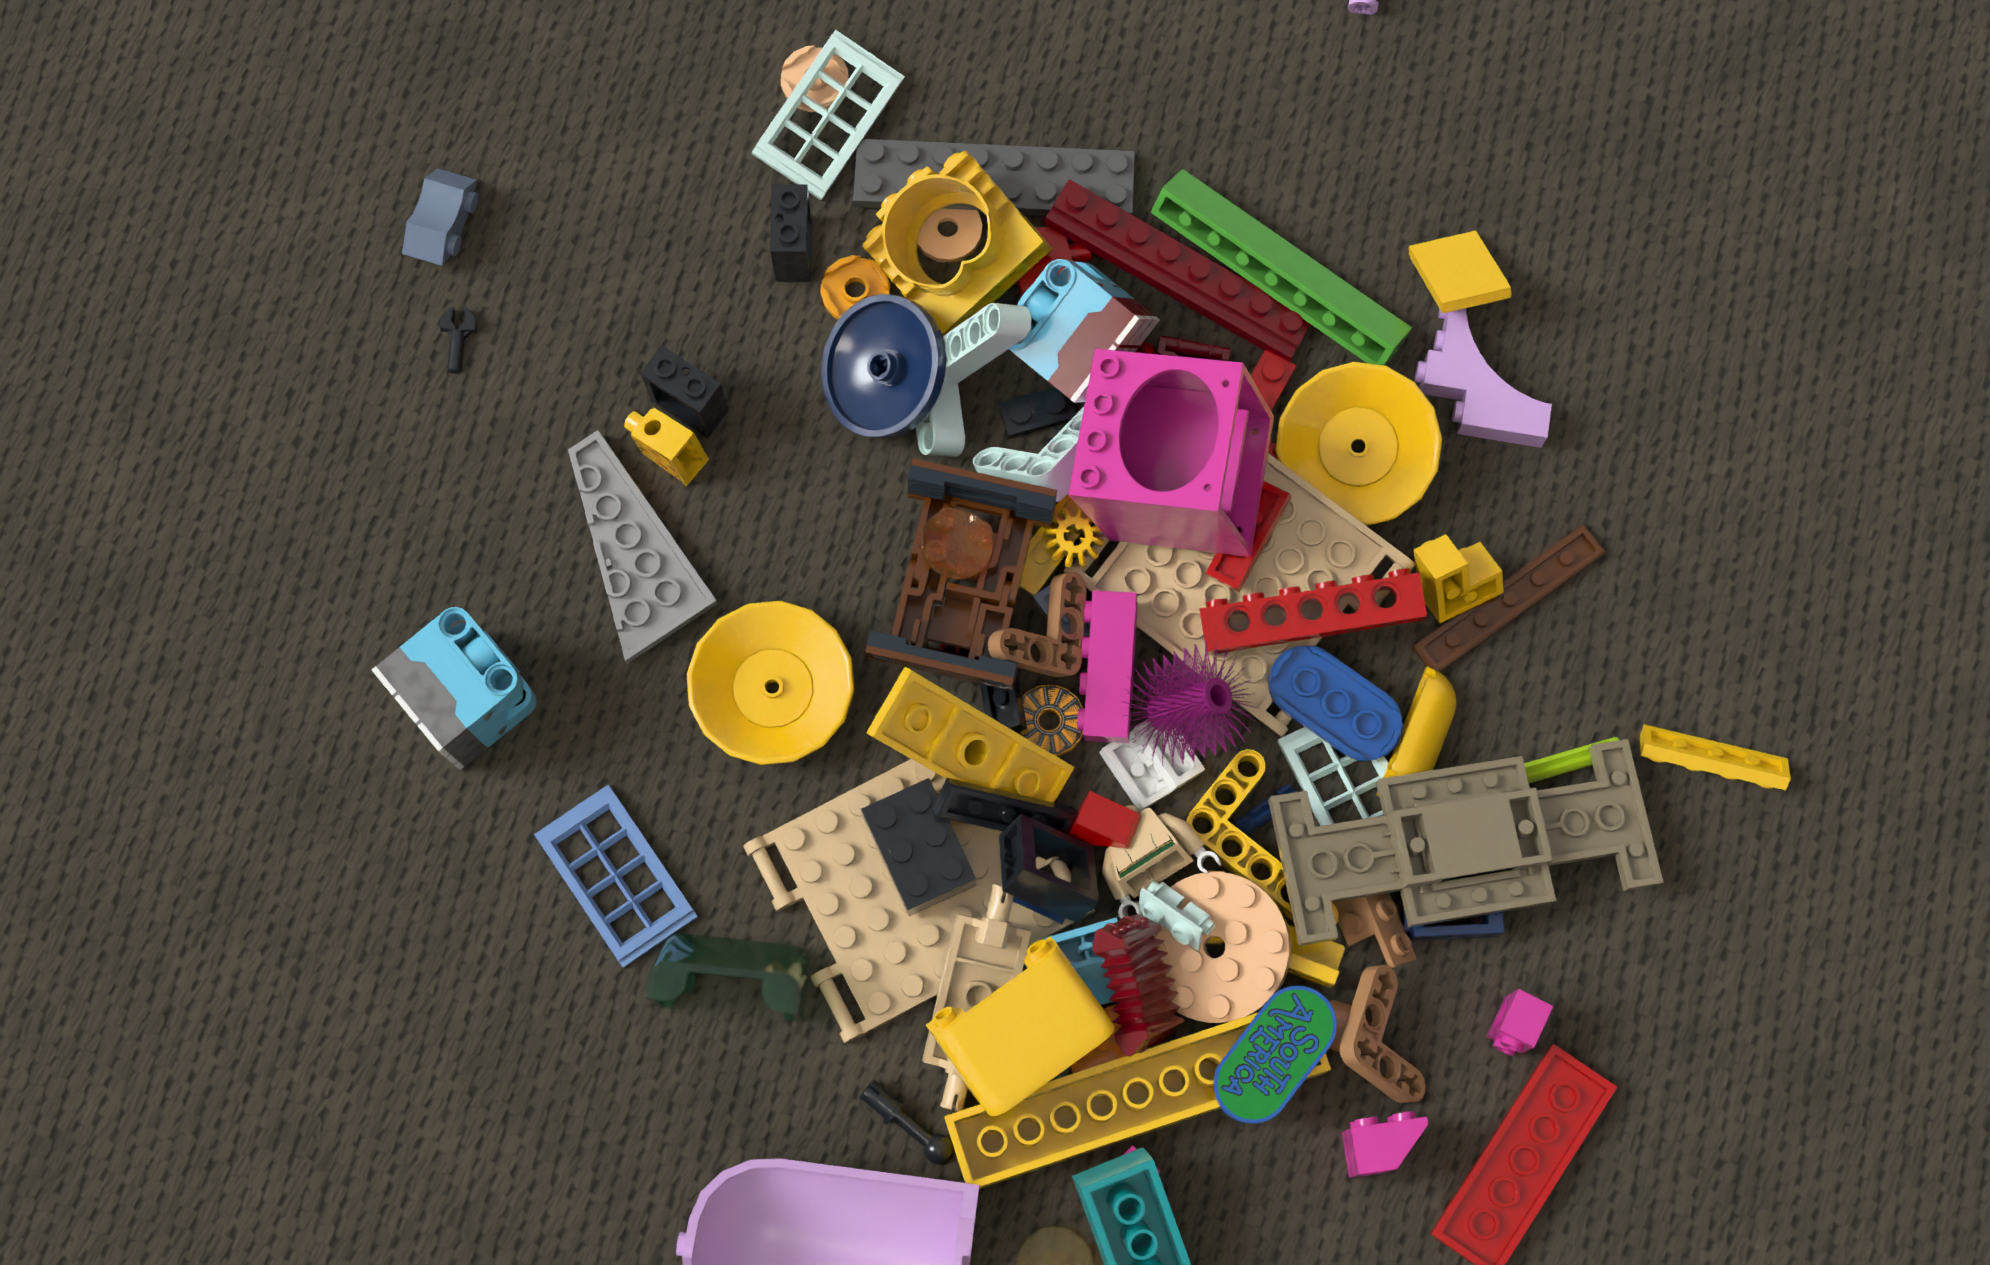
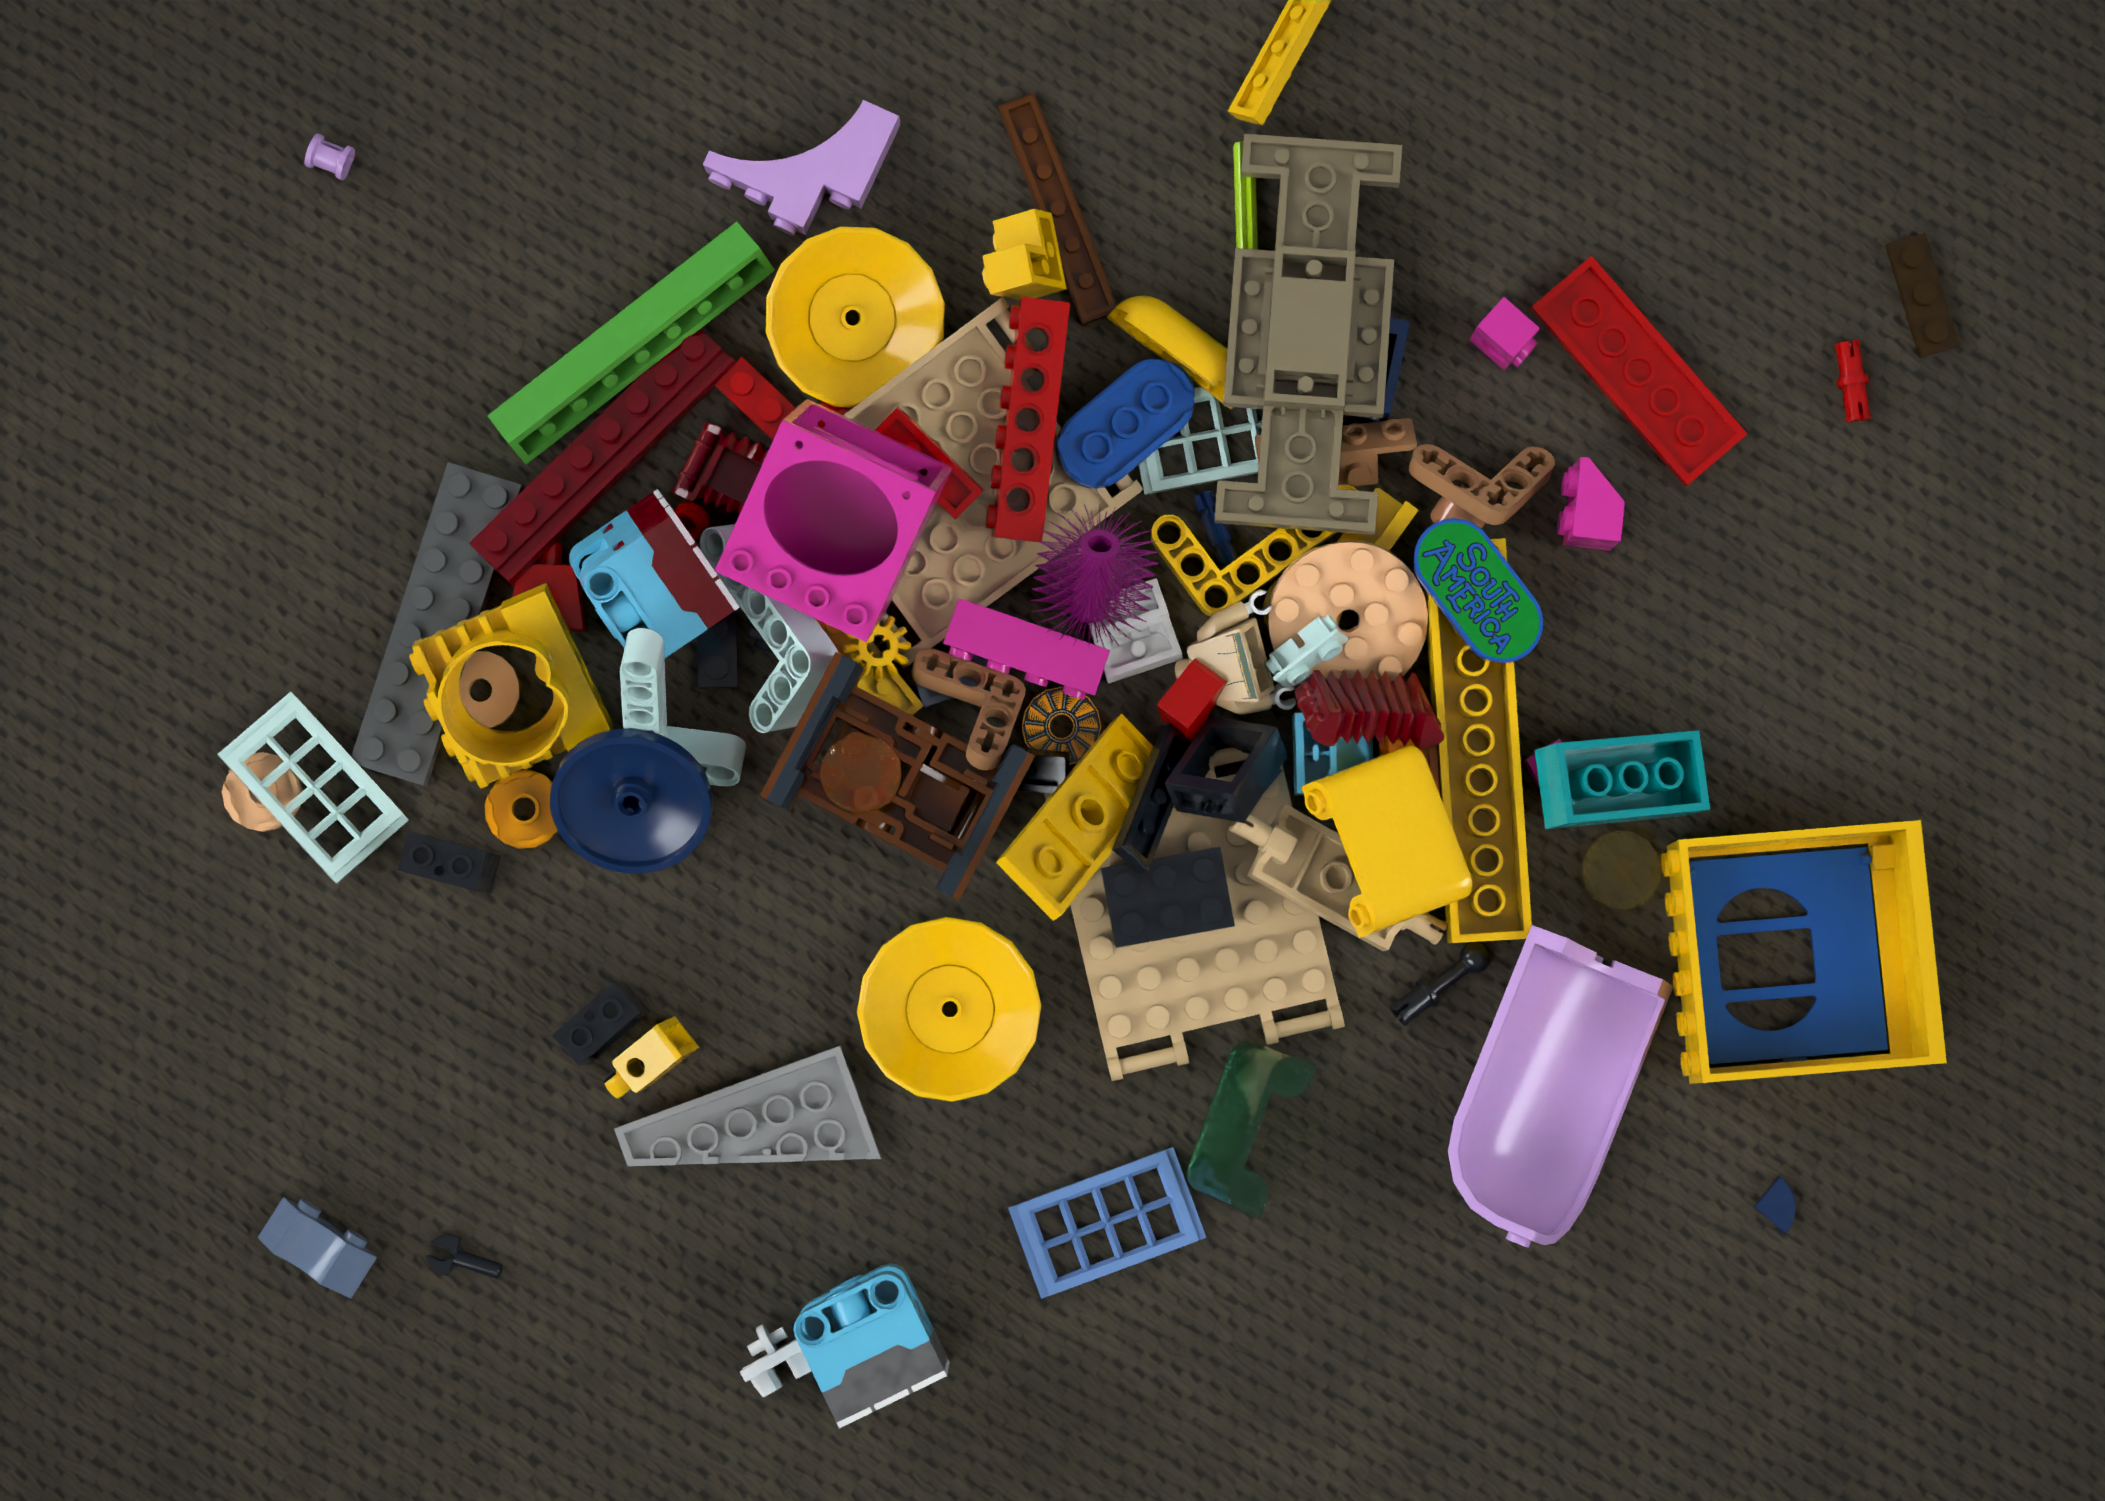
camera: 70 degrees left, 10 degrees up
(414, 608) = (762, 1371): none -> white hips
(1459, 272) = (688, 152): yellow tile -> none

